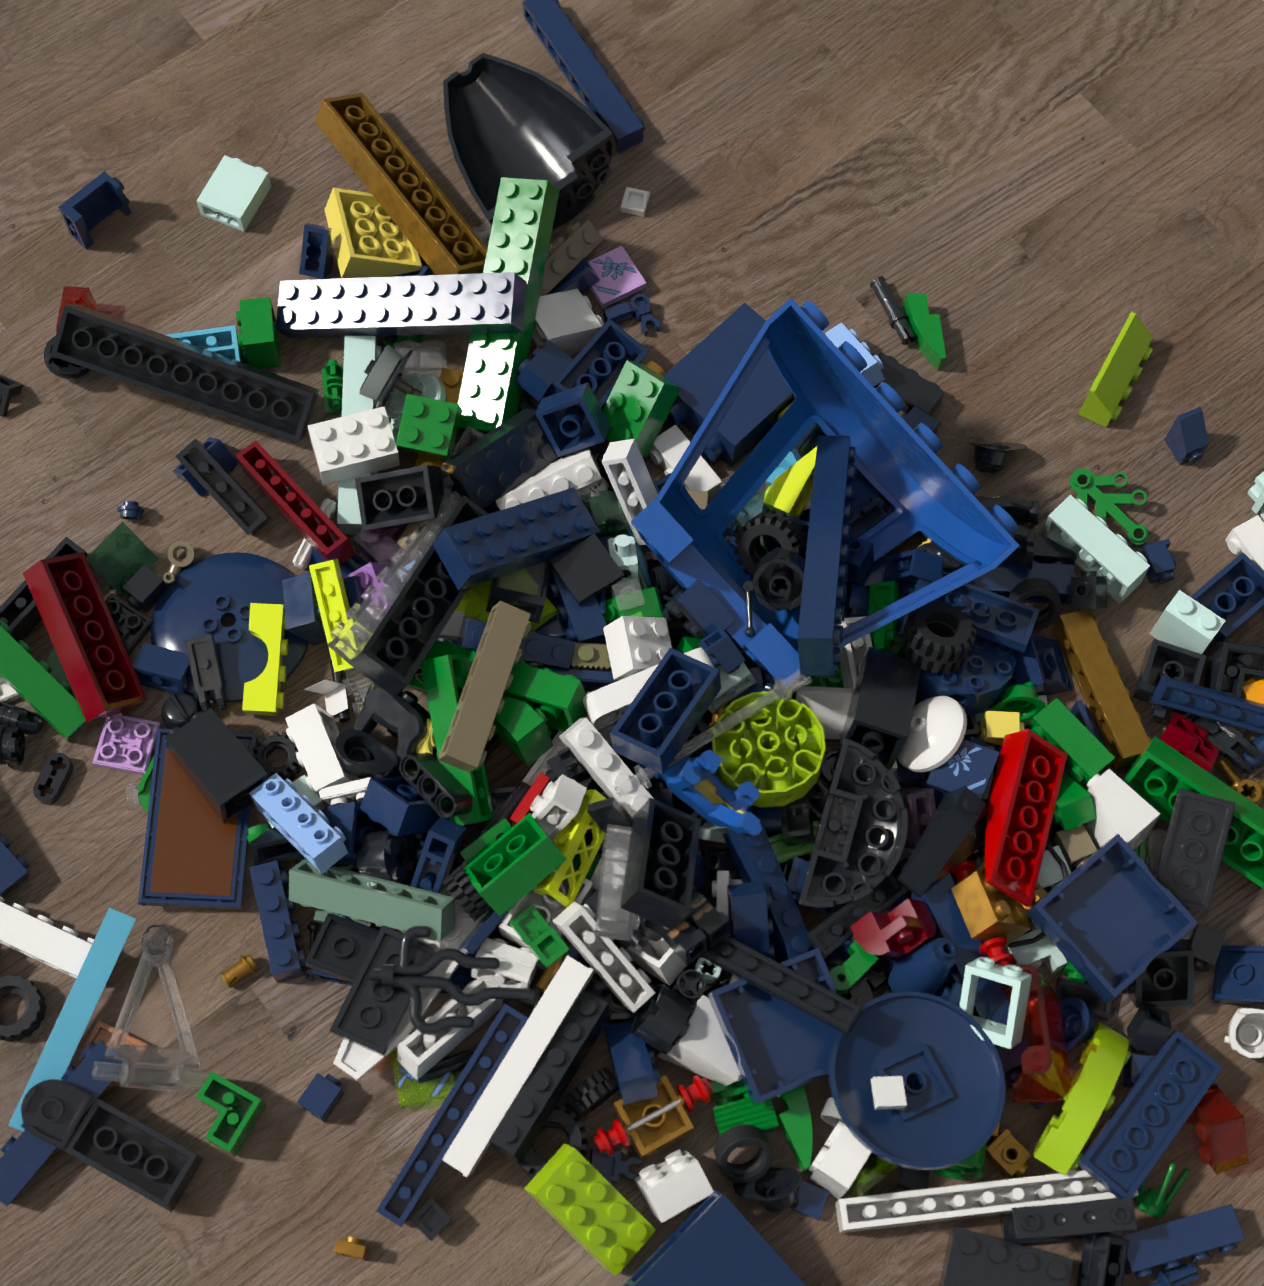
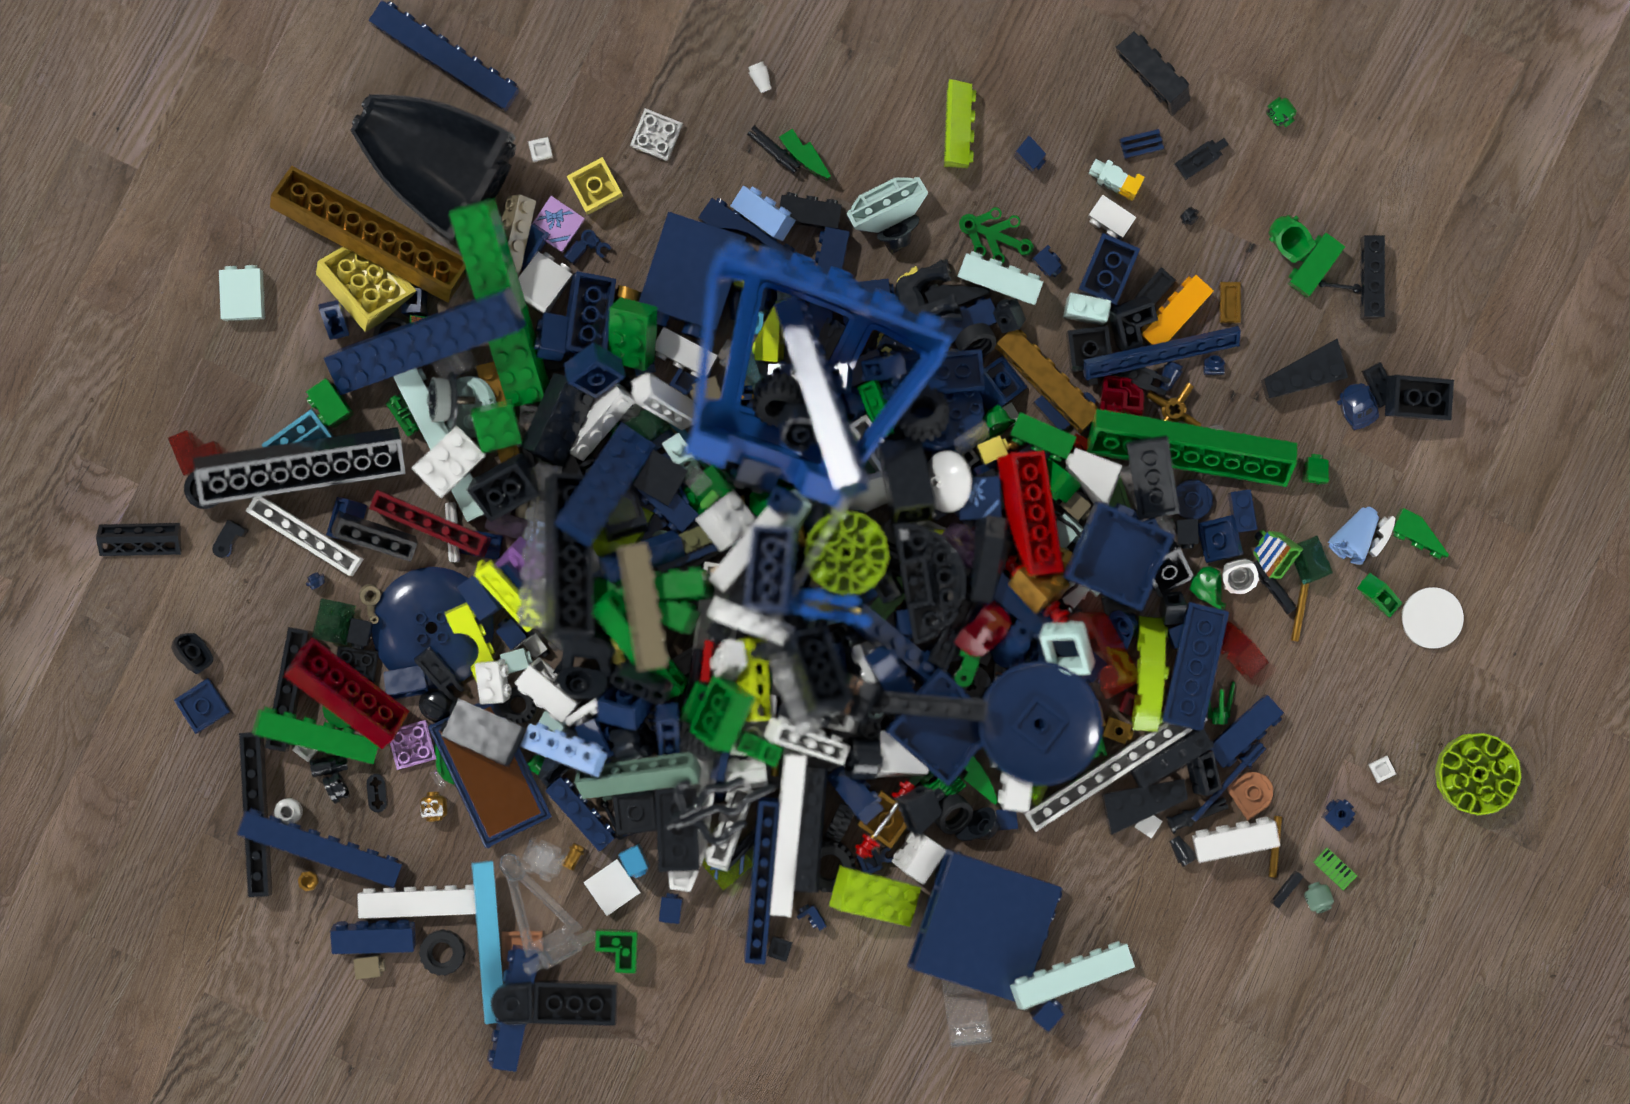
camera: 25 degrees left, 20 degrees up
(62, 423) = (224, 543): none -> black leg
(92, 206) = (146, 362): dark blue panel -> none
(107, 825) = (433, 807): none -> pearl gold head
(148, 455) = (304, 535): none -> white brick
(199, 951) = (543, 859): none -> clear brick
(262, 708) = (493, 681): none -> white bracket
(264, 1032) = (612, 887): none -> white tile
(300, 698) = (517, 660): none -> light aqua brick
(309, 1009) = (634, 861): none -> dark azure brick
(315, 668) = (511, 633): none -> dark blue brick
(351, 1248) = (739, 989): pearl gold plate -> none
(498, 1204) = (816, 919): none -> dark blue bracket
(675, 255) = (594, 186): none -> light yellow brick
(705, 1118) = (920, 808): none -> black torso
(748, 588) = (795, 473): black hinge -> none
(769, 242) = (656, 134): none -> white tile
(888, 1092) = (1026, 743): white tile -> none
(914, 231) = (760, 76): none -> white cone
(984, 696) = (971, 438): none -> clear piece
(998, 419) = (887, 204): none -> light aqua wedge
(1035, 1127) = (1126, 704): none -> dark red panel
(1205, 1024) = (1208, 587): none -> green helmet
(1228, 913) = (1194, 499): none -> dark blue tile

